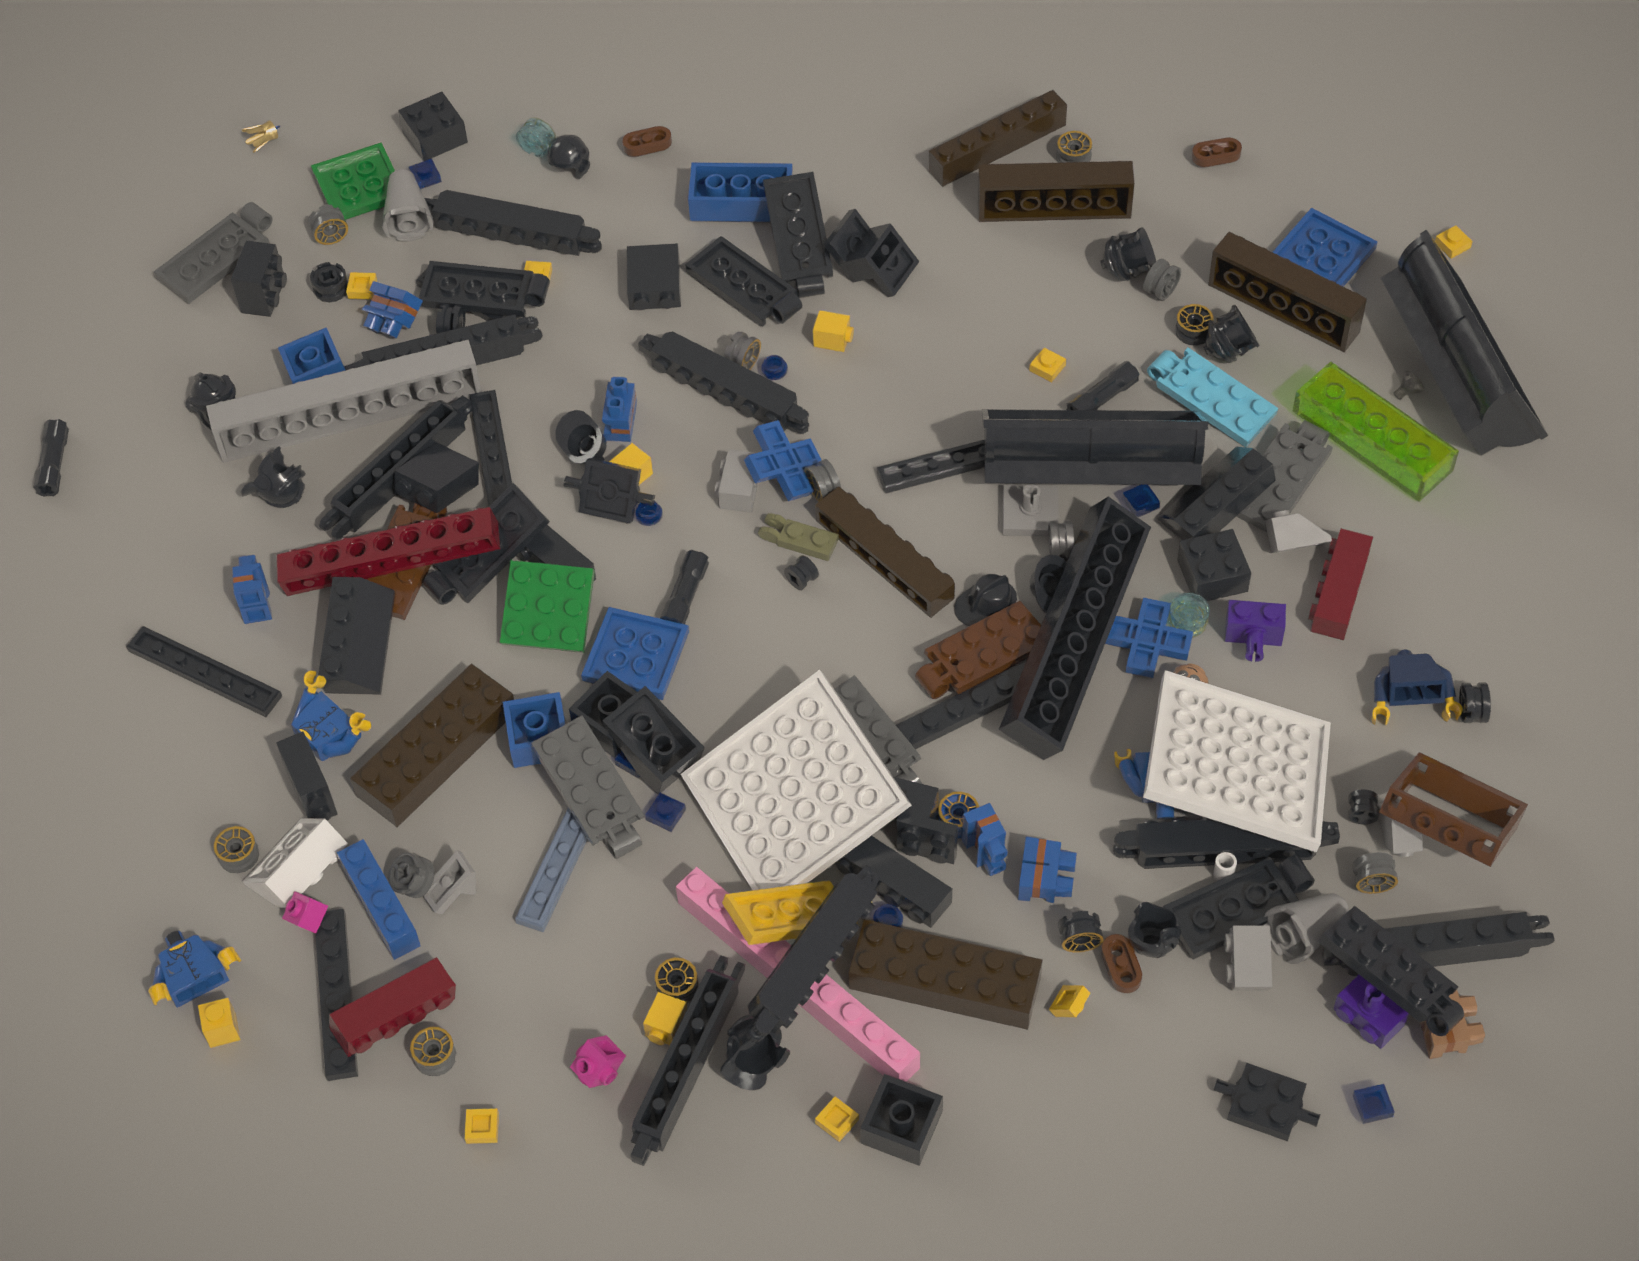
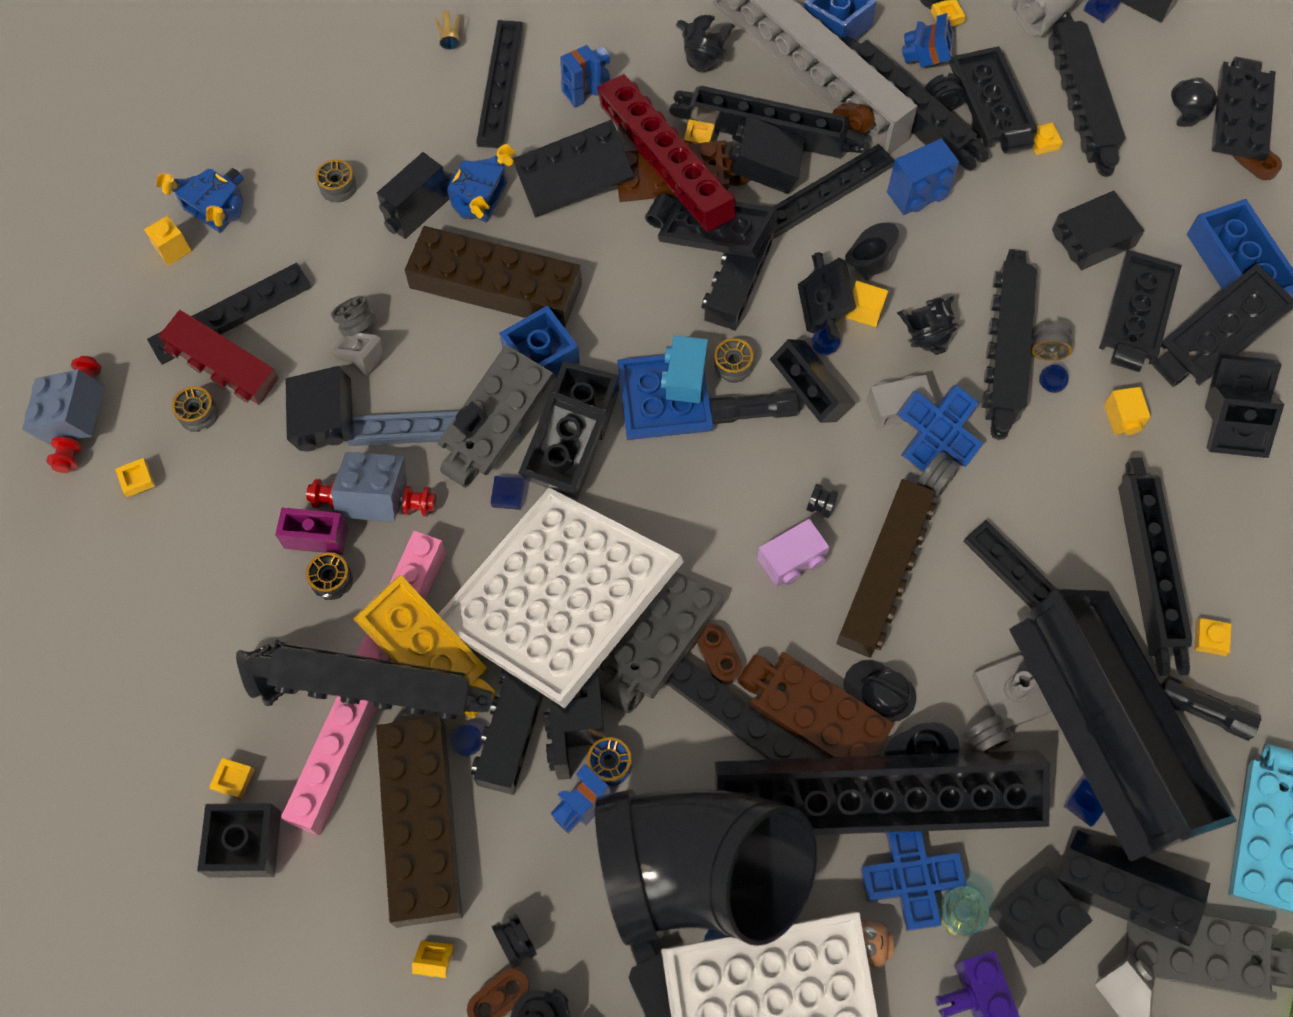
camera: 65 degrees right, 10 degrees up
(122, 693) = (449, 37): none -> pearl gold piece
(296, 861) = (336, 228): white slope -> none
(304, 912) = (288, 253): dark pink plate -> none
(372, 522) = (699, 132): none -> yellow plate
(375, 1165) = (65, 410): none -> sand blue brick
(378, 899) = (311, 313): blue brick -> none
(442, 389) = (859, 116): none -> reddish brown plate
(499, 935) = (319, 409): none -> black brick
(533, 372) = (922, 177): none -> blue brick
(535, 136) = (1197, 63): clear light blue wheel -> none
(547, 606) = (675, 300): green plate -> none
(594, 796) = (469, 419): none -> black plate
(597, 1061) = (218, 542): dark pink brick -> none
(598, 125) = (1244, 109): none -> black hinge
(608, 916) = (371, 489): none -> sand blue brick
(619, 410) = (924, 266): blue hips -> none
(625, 579) = (743, 355): none -> dark grey wheel
(627, 620) = (686, 369): none -> dark azure brick
(627, 977) = (311, 530): none -> magenta brick
(664, 1019) = (284, 582): yellow brick -> none
(679, 427) = (931, 325): none -> black helmet
(684, 1060) = (246, 615): black hinge -> none
(687, 533) = (812, 381): none -> black brick
(799, 537) = (867, 485): olive hinge -> none
(839, 613) = (793, 553): none -> lavender brick
(900, 704) = (719, 652): none -> reddish brown plate
(975, 371) = (1155, 568): none -> black hinge
(1040, 870) = (562, 881): blue hips -> none
(1082, 755) = (704, 863): none -> black cylinder

